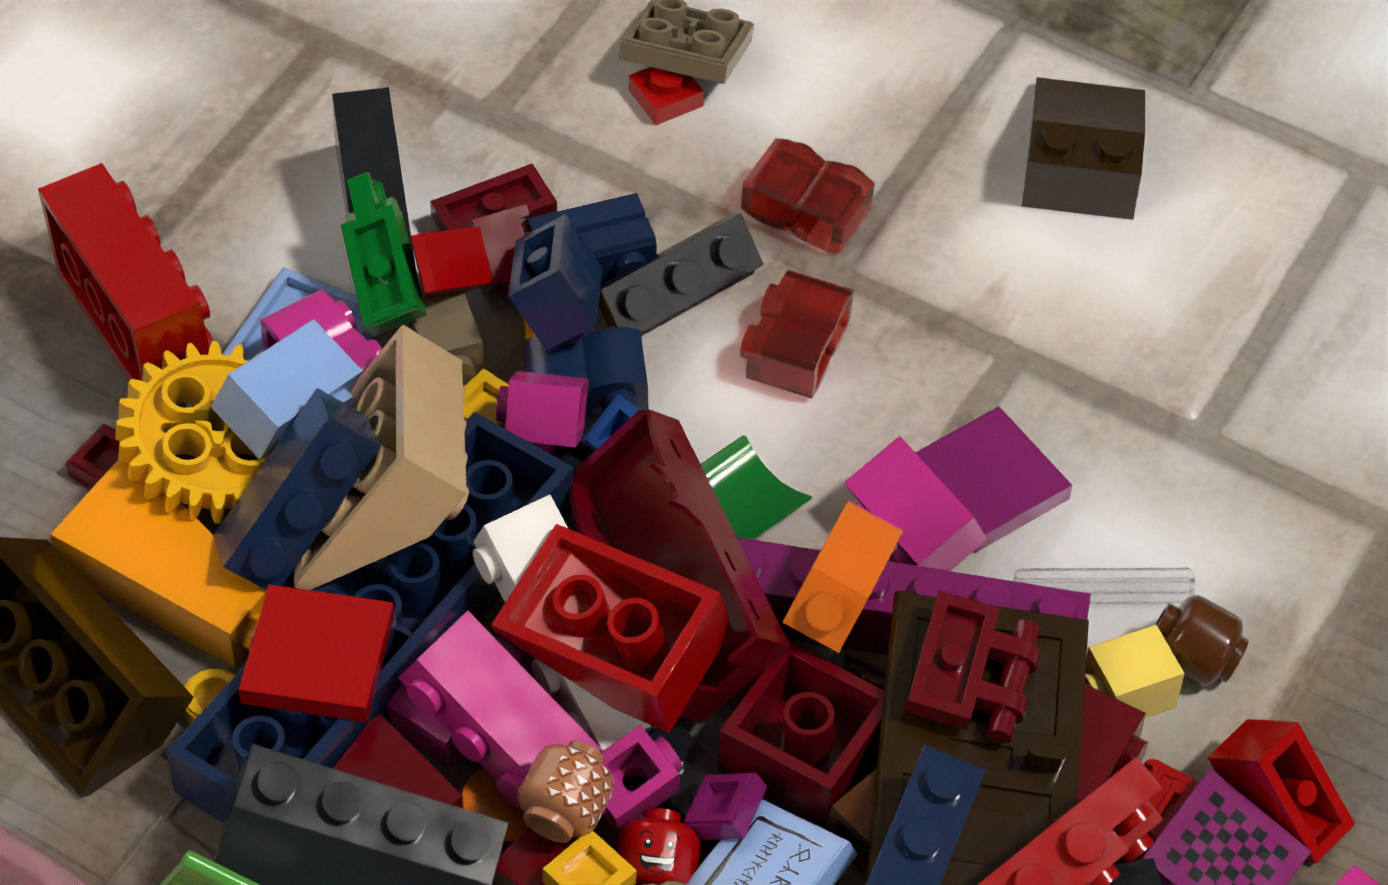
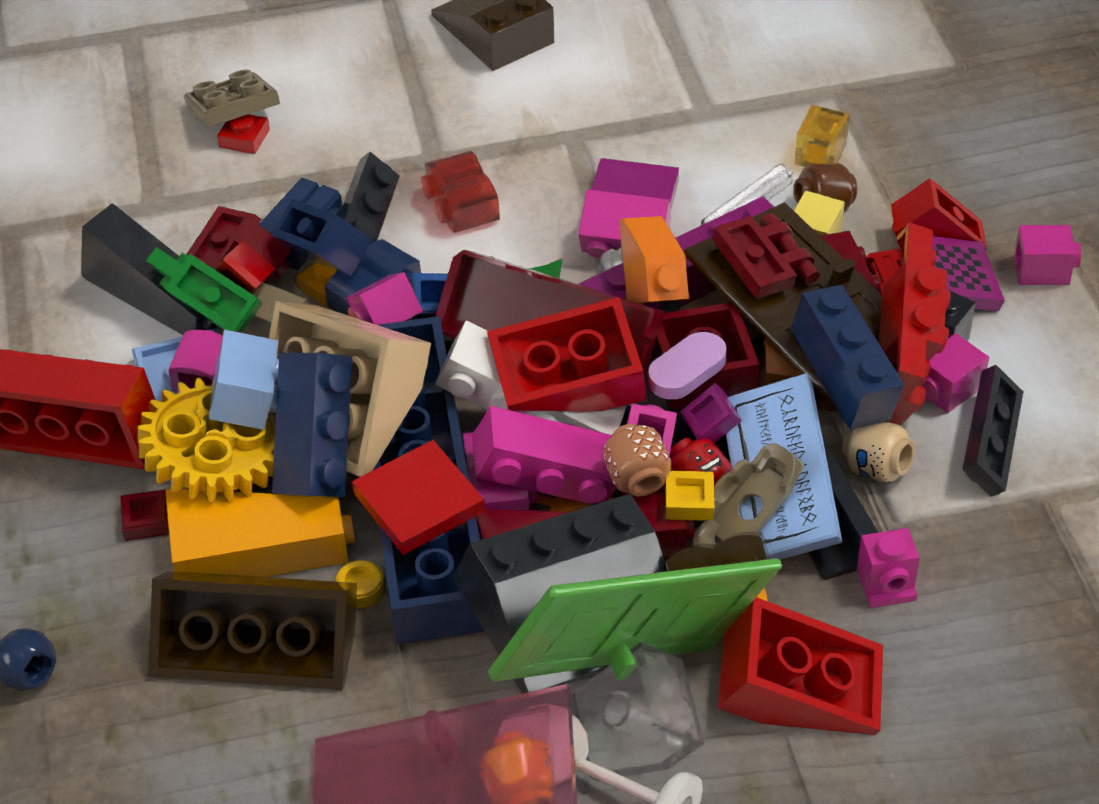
camera: 40 degrees left, 5 degrees down
(745, 728) = (687, 365): none -> lavender tile
(807, 195) = (386, 127): clear red brick -> none
(1278, 574) = (821, 136): none -> clear yellow brick

